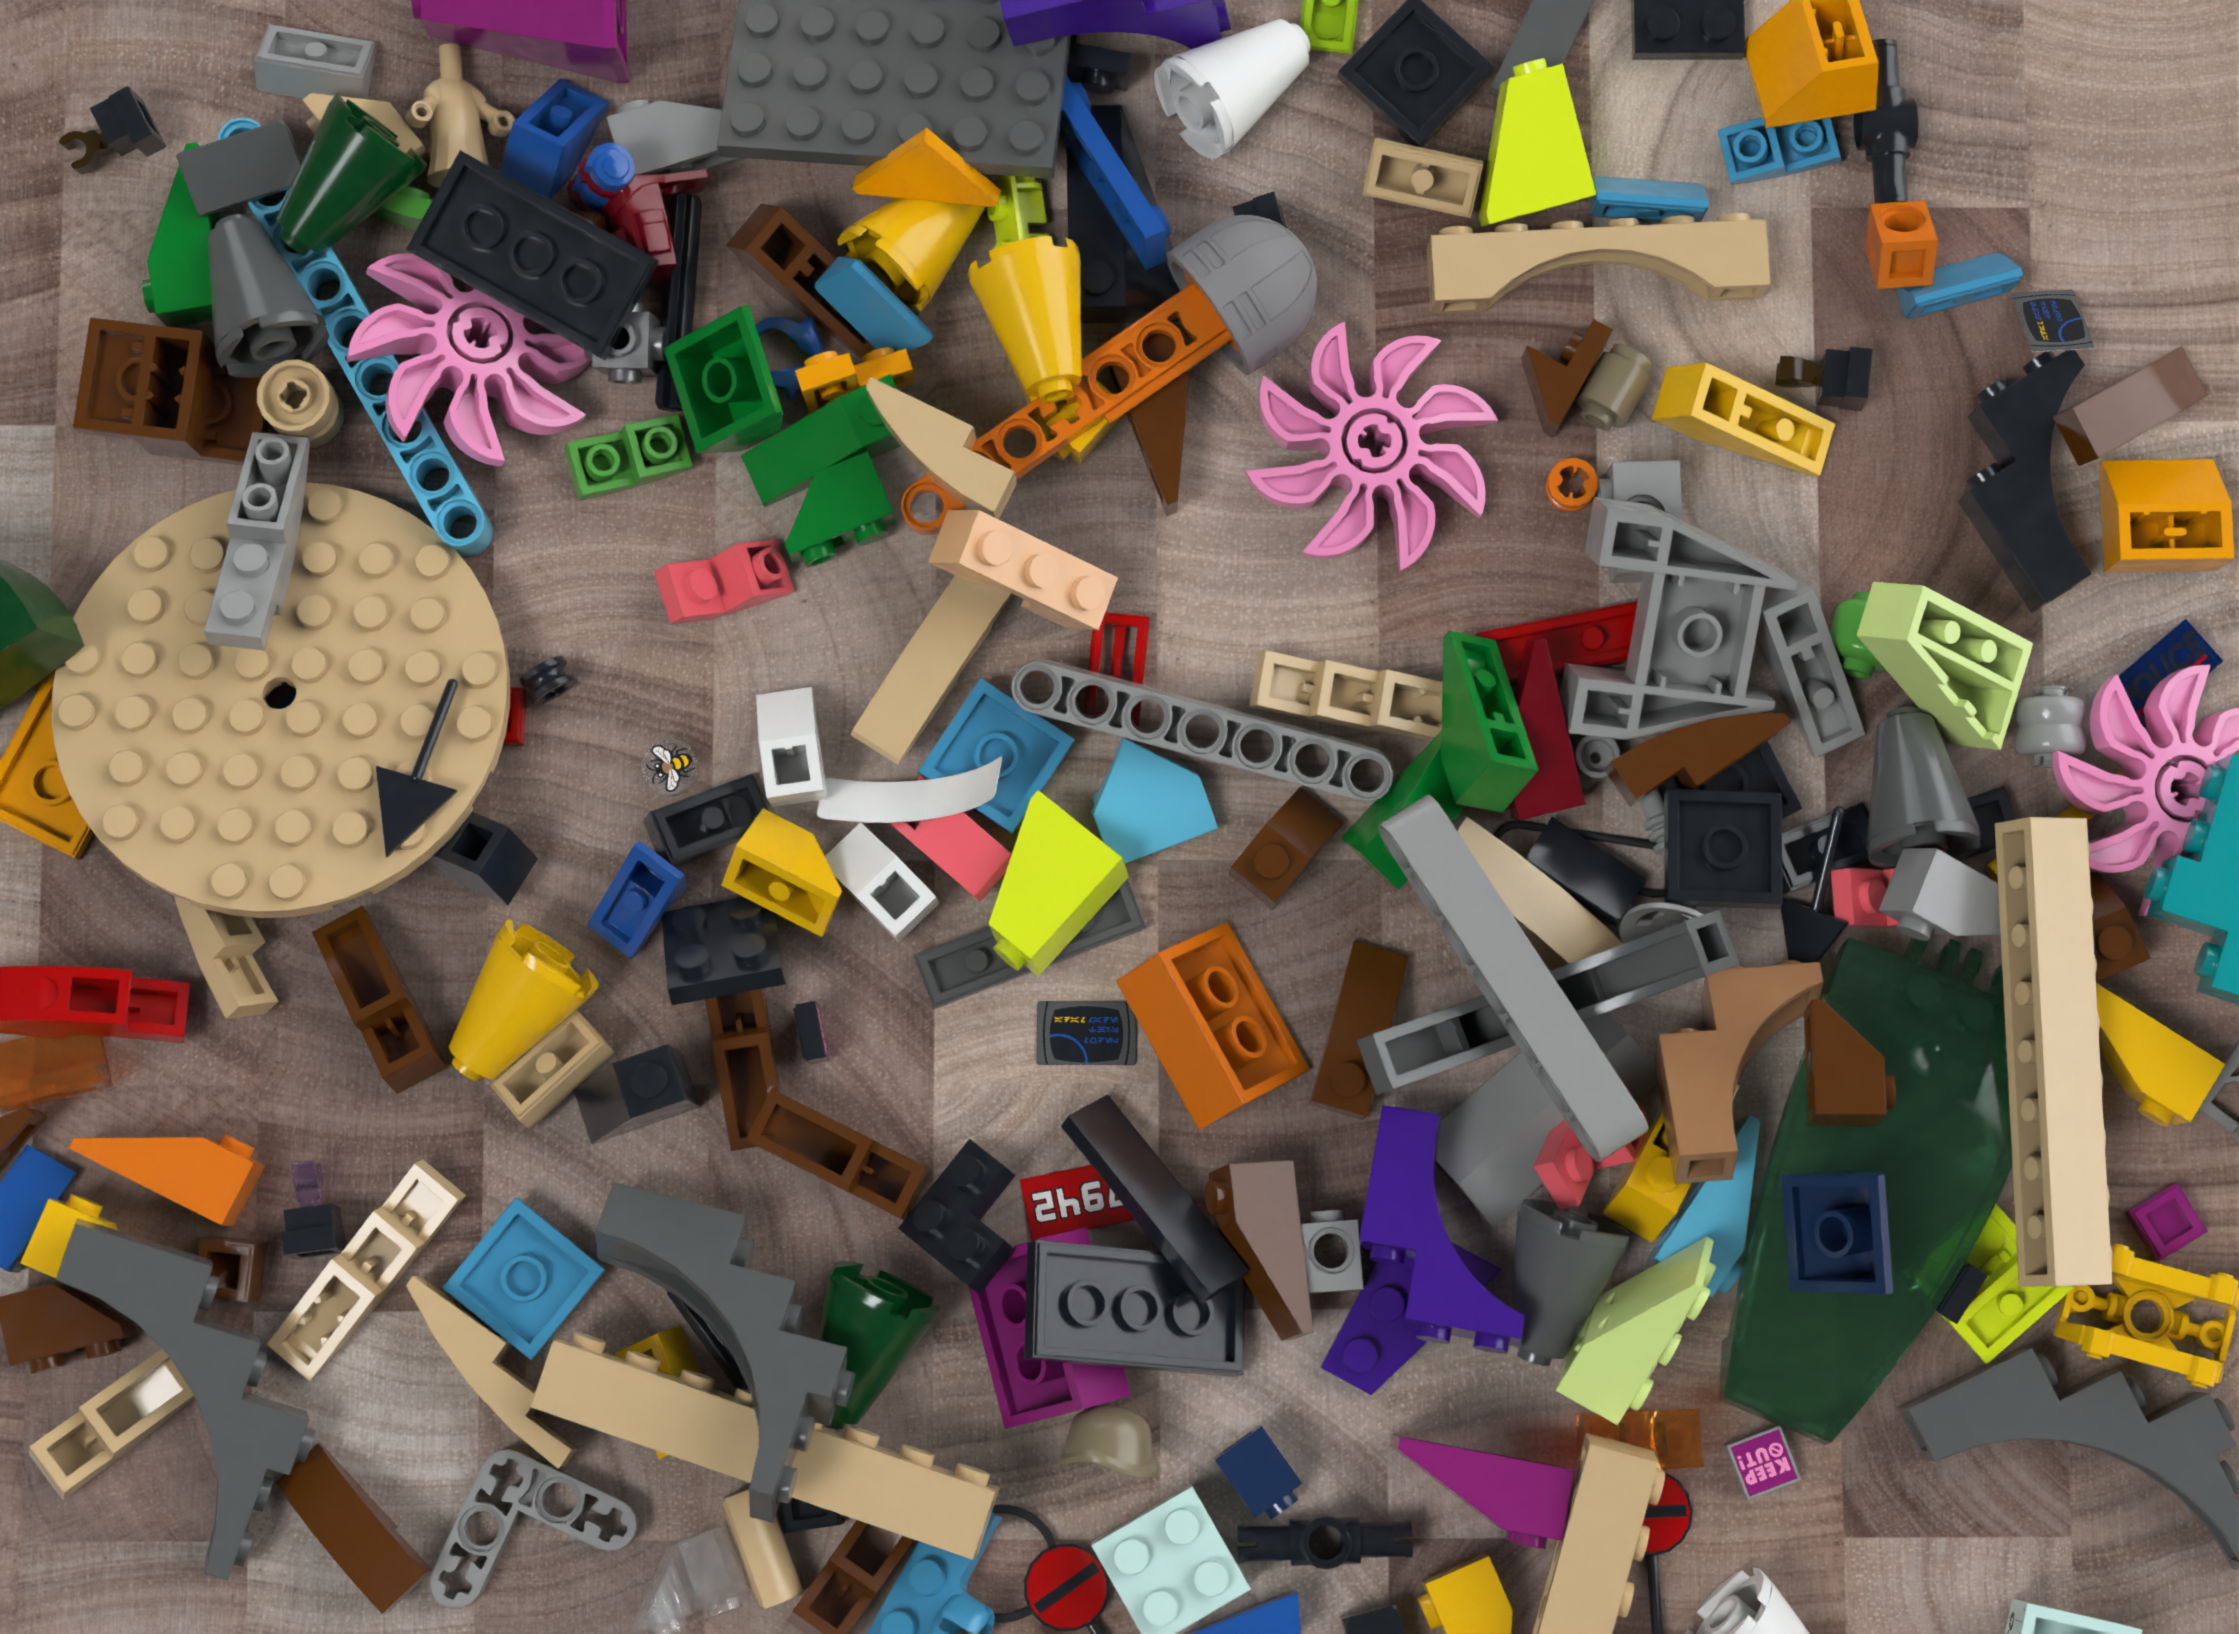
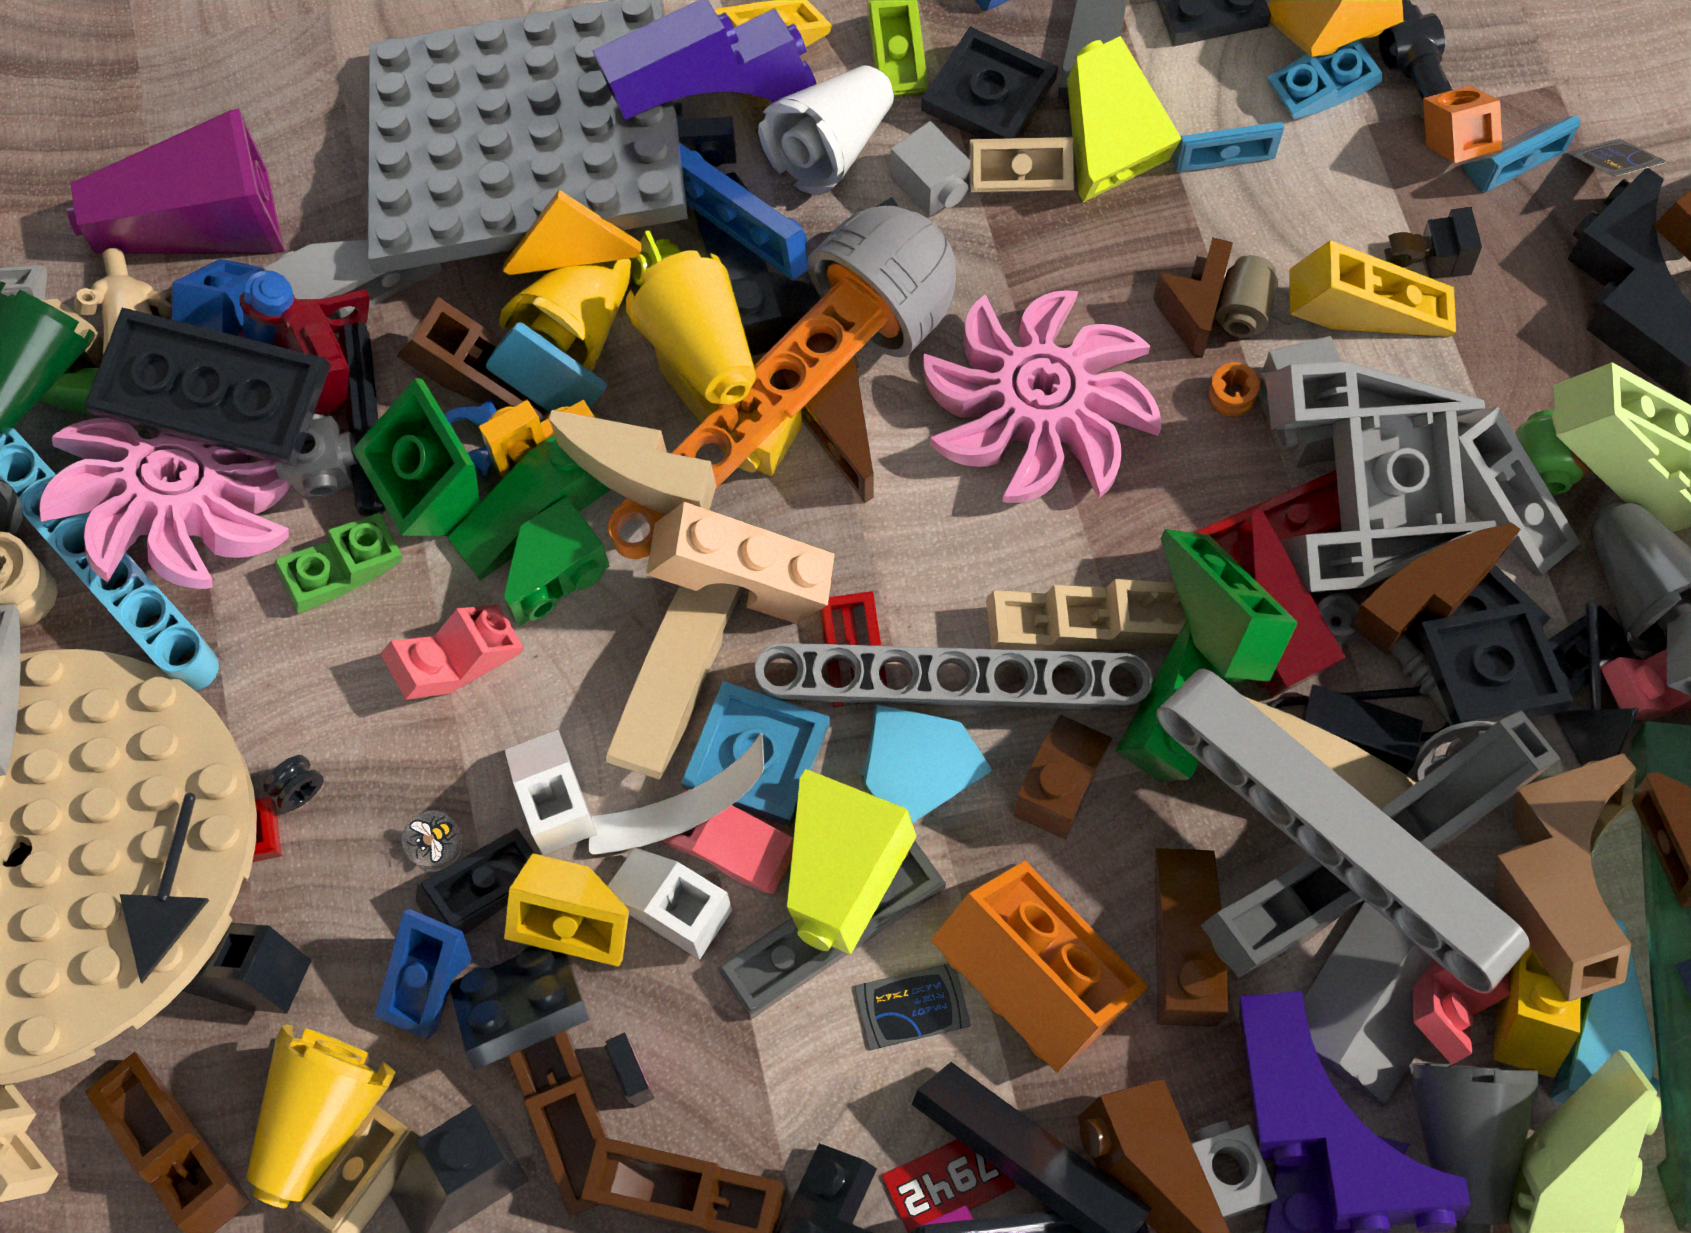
camera: 10 degrees left, 15 degrees down
(1326, 159) = (930, 169): none -> light grey brick
(1710, 258) = (1290, 175): tan arch -> none

